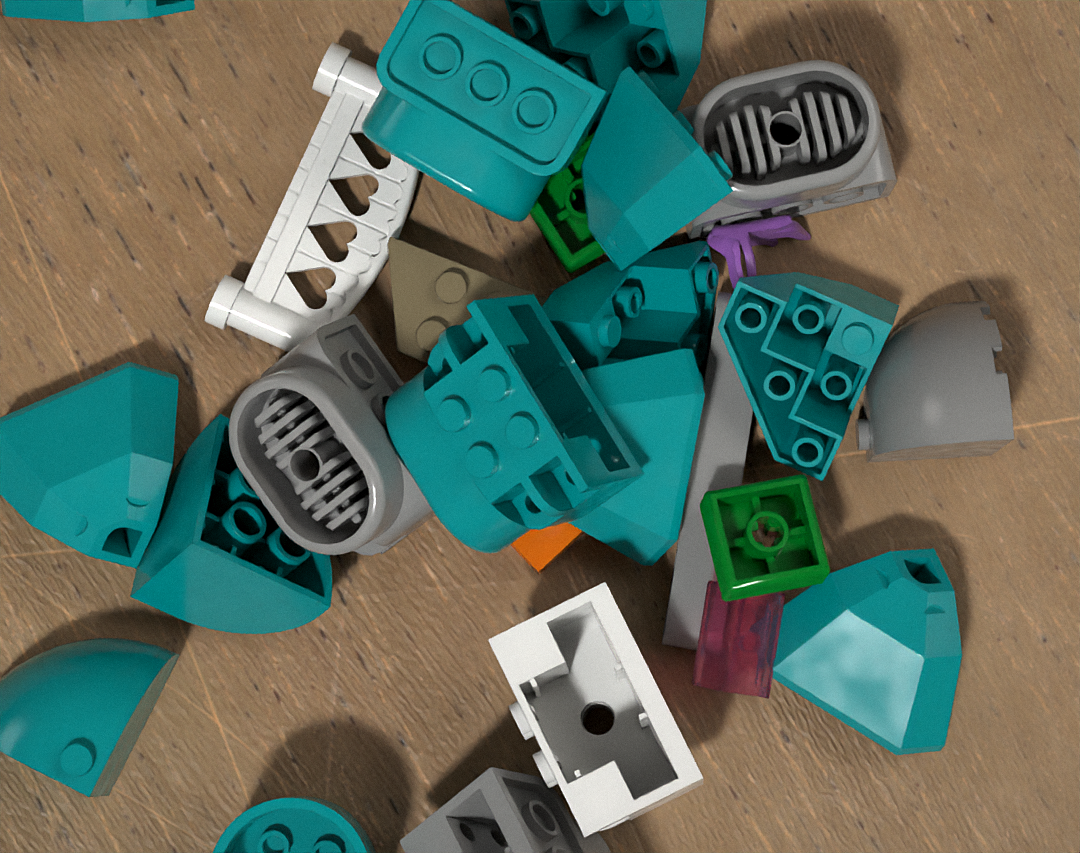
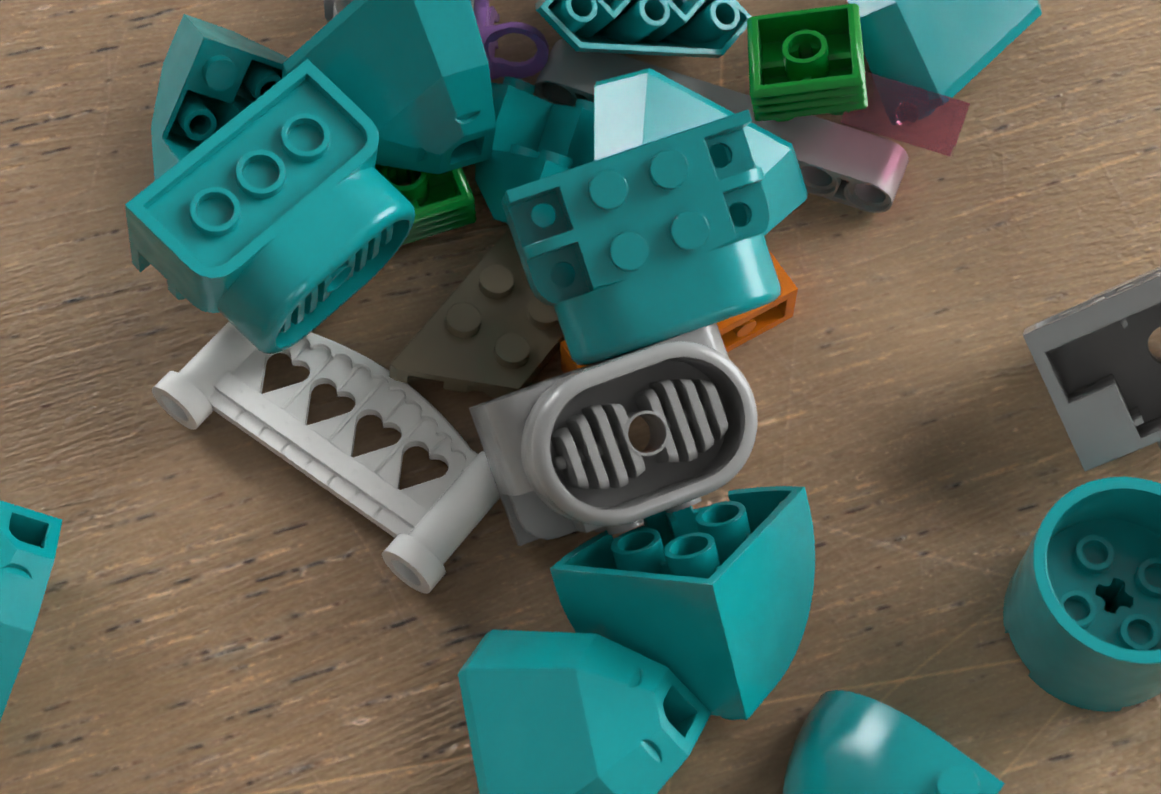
camera: 80 degrees left, 20 degrees down
(584, 661) = (974, 235): white brick -> none

